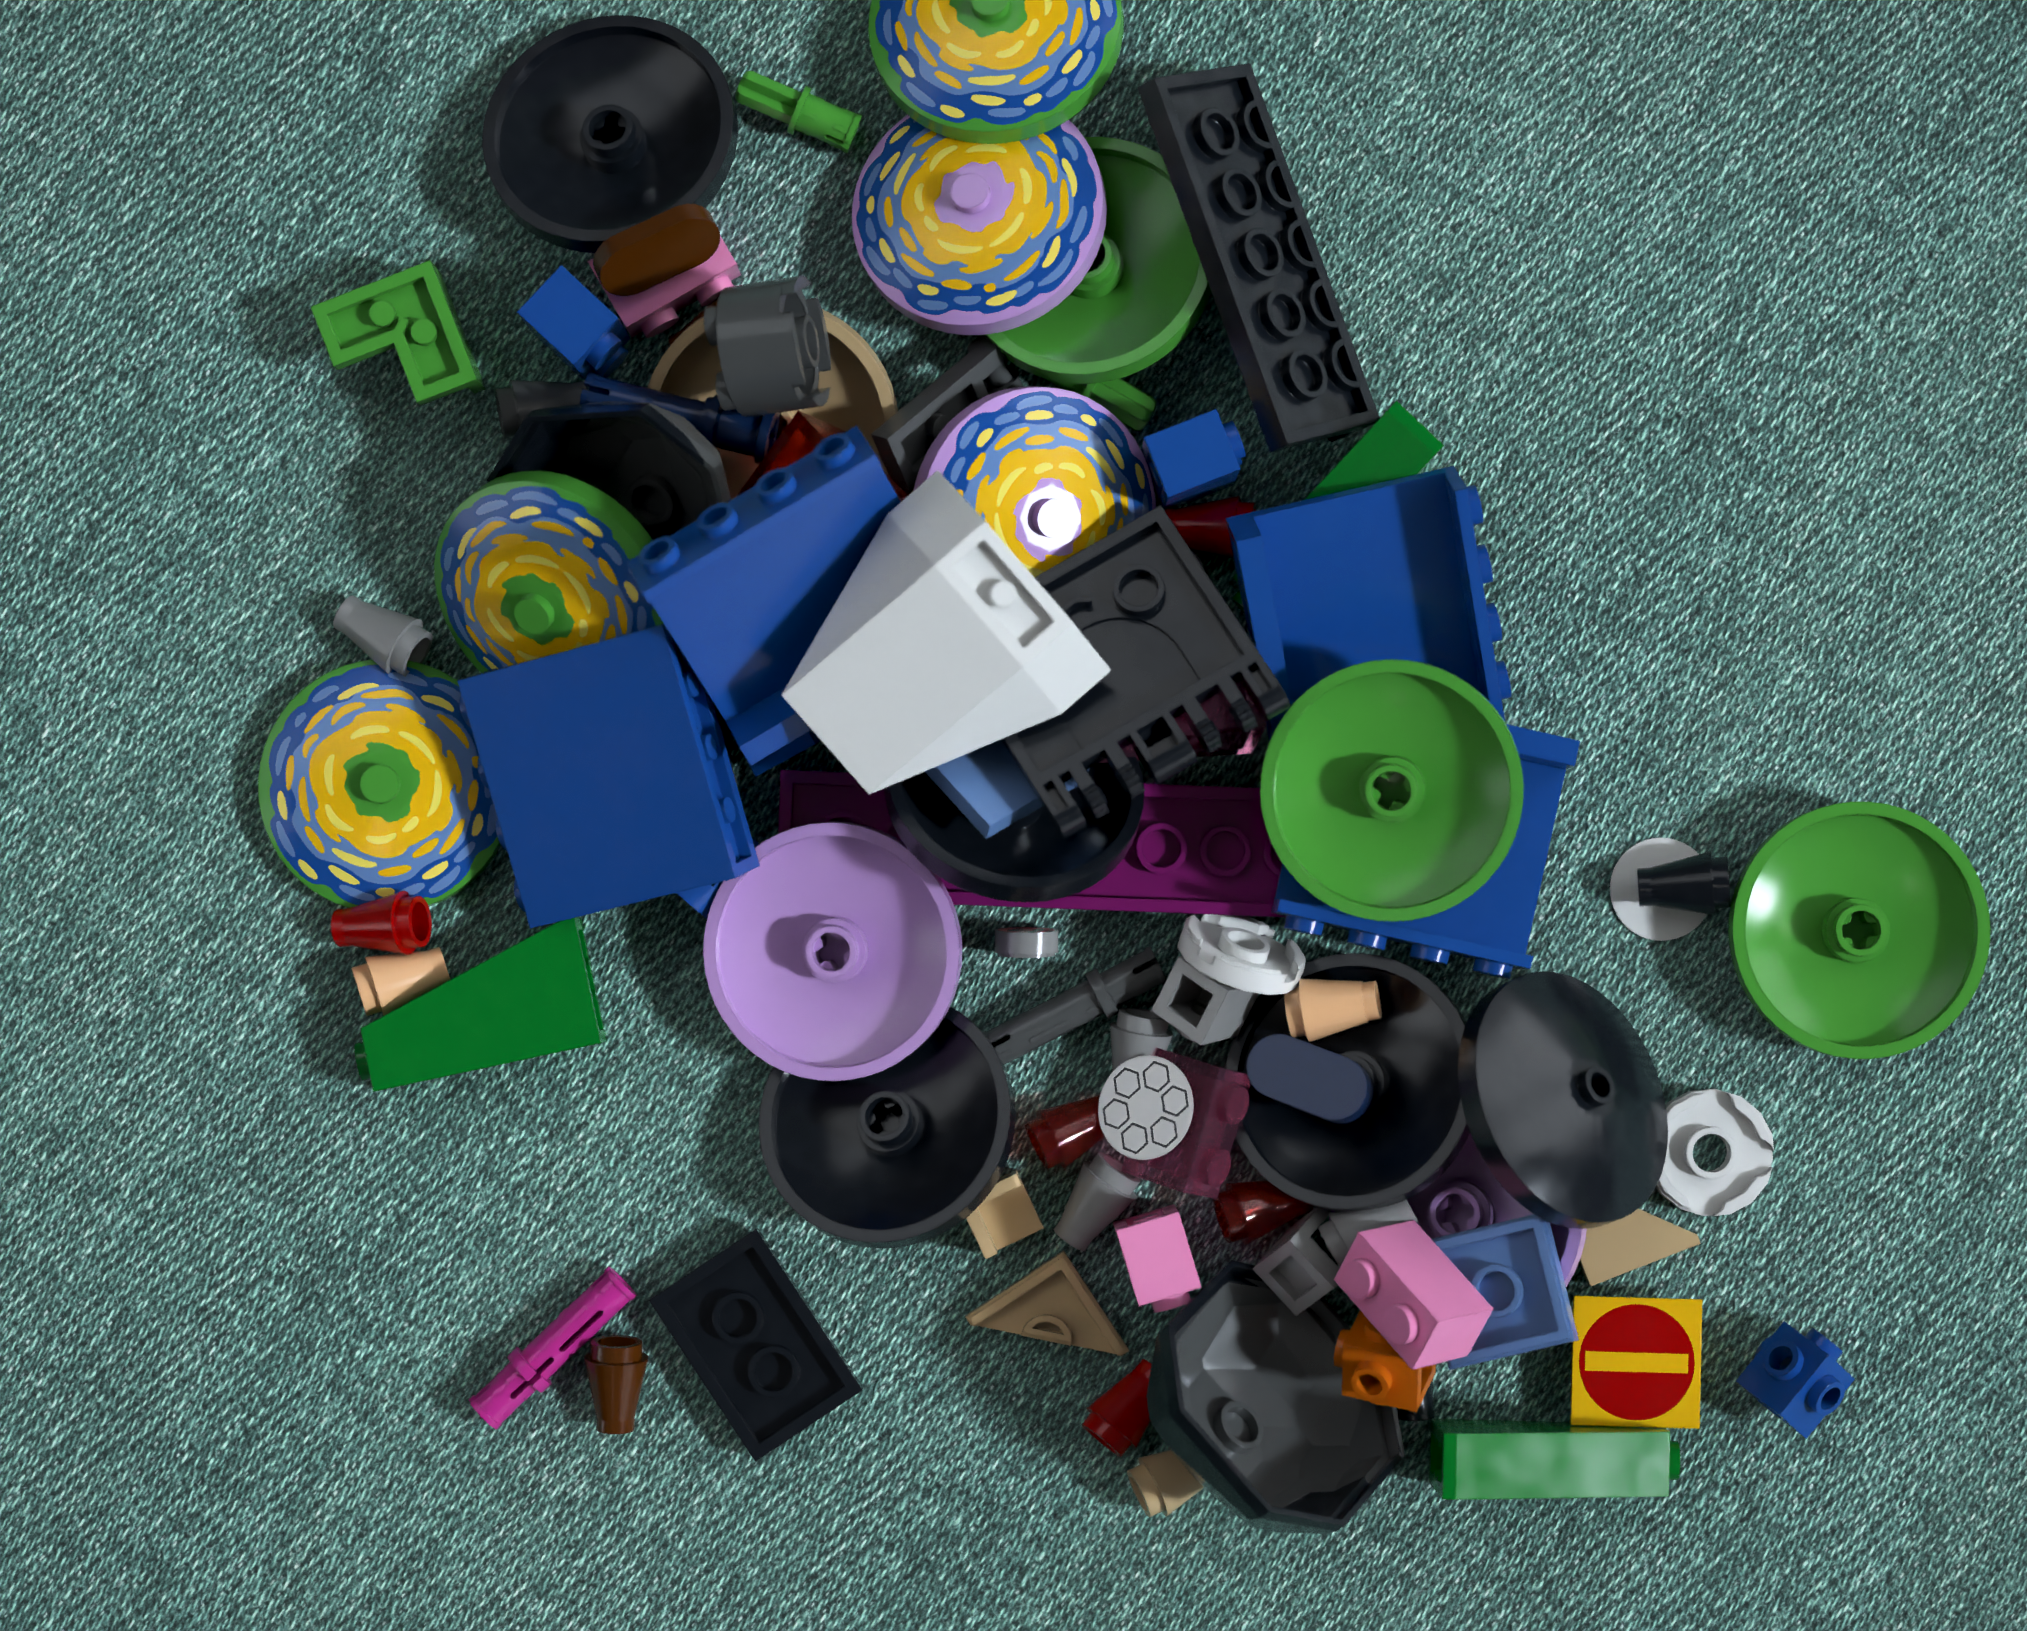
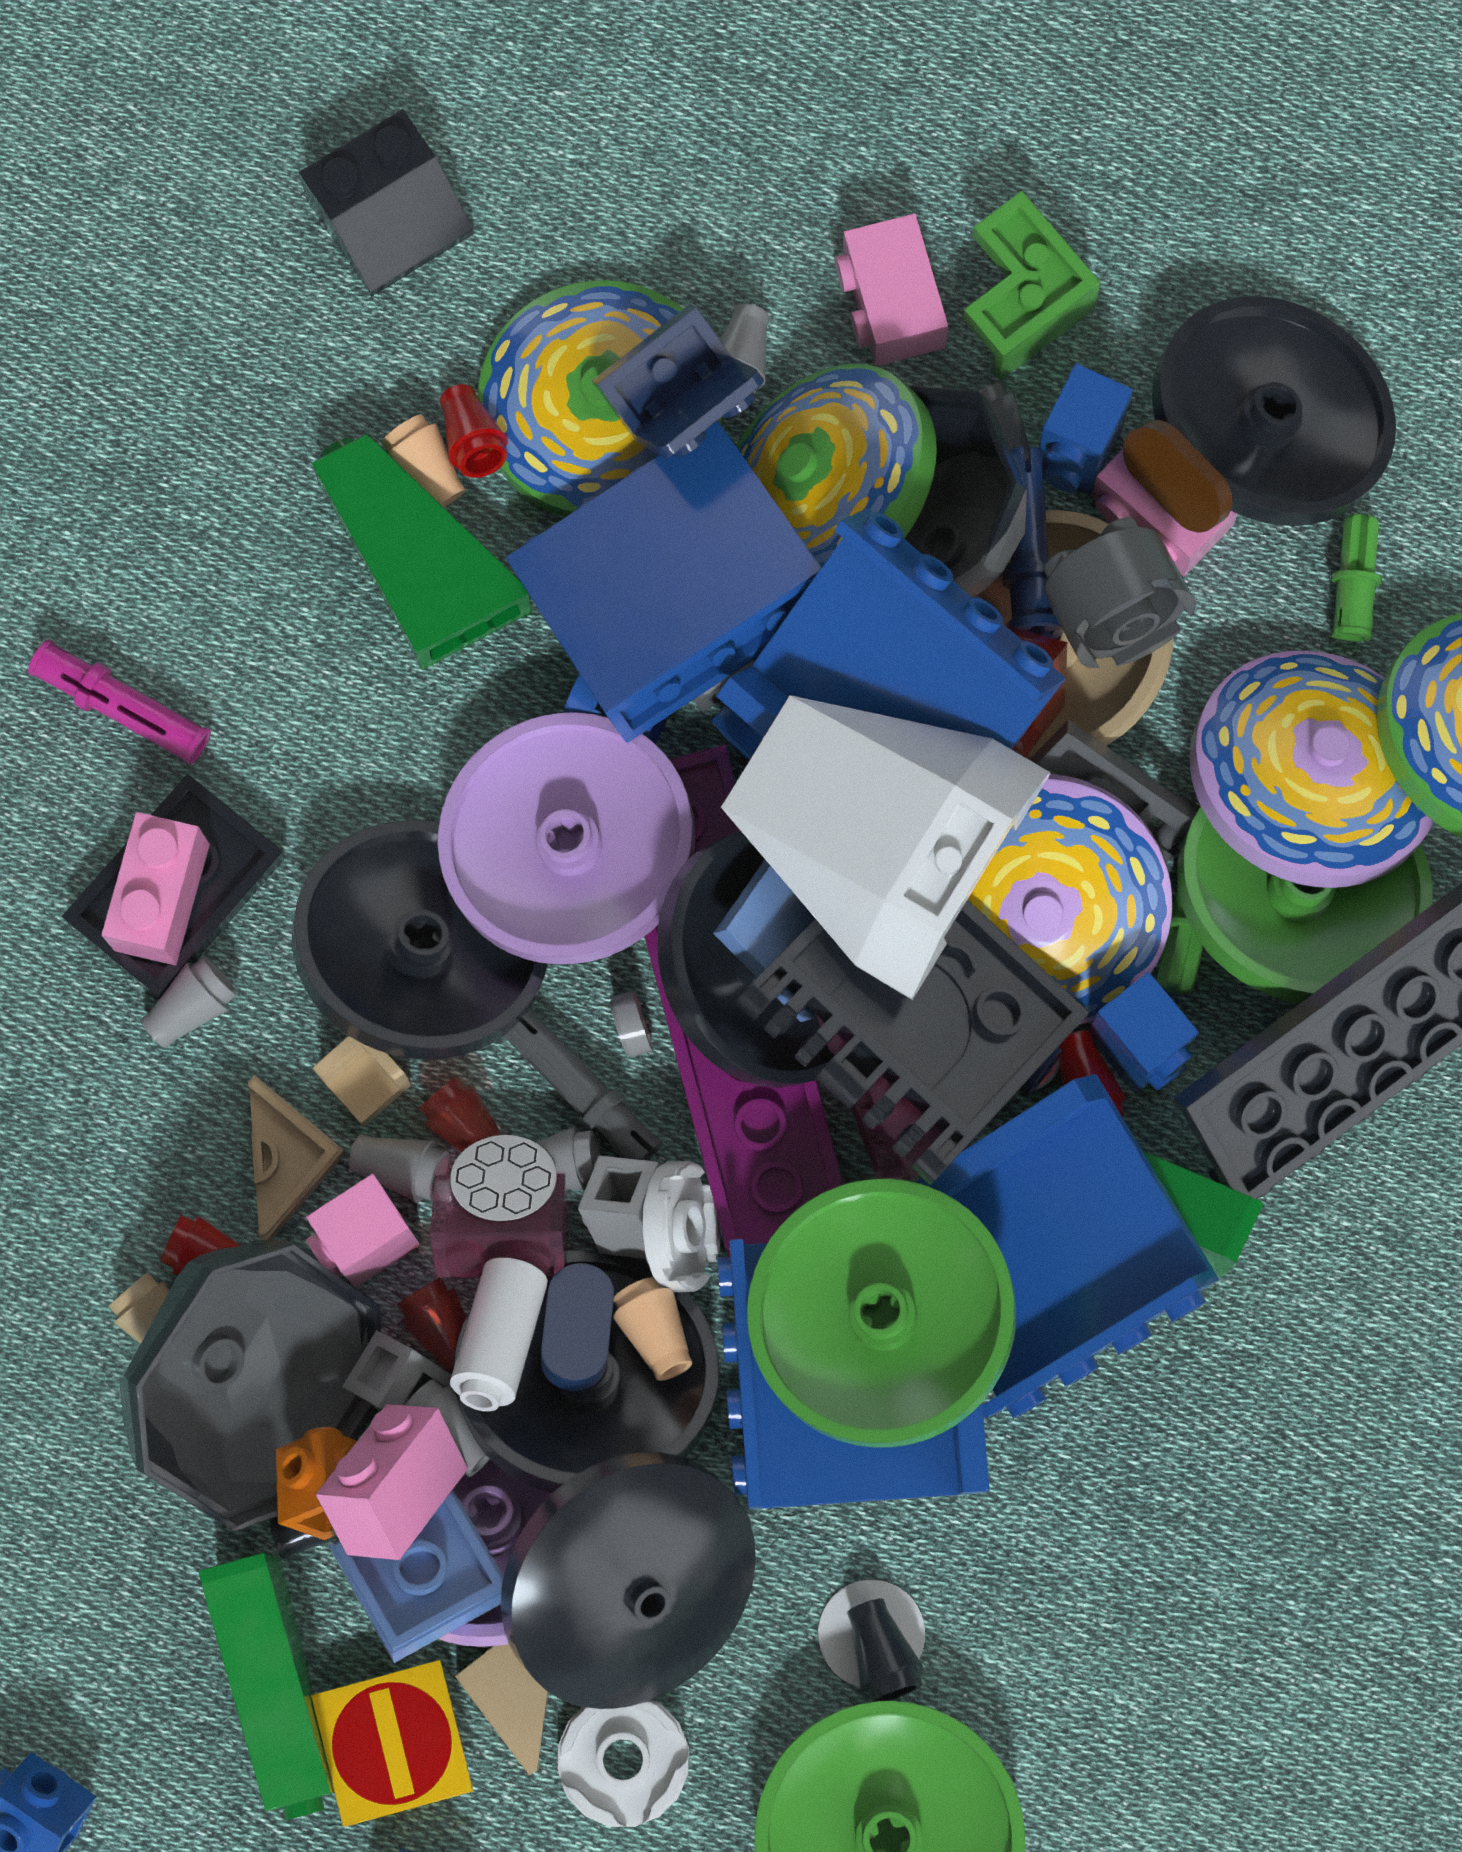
camera: 75 degrees right, 10 degrees down
(116, 940) = (386, 202): none -> black slope
(365, 465) = (893, 290): none -> bright pink brick
(415, 706) = (677, 385): none -> dark blue bracket
(615, 1380) = (105, 767): reddish brown cone -> none
(763, 1362) = (155, 888): none -> bright pink brick
(875, 1358) = (191, 1000): none -> light grey cone
(1300, 1155) = (498, 1333): none -> white brick

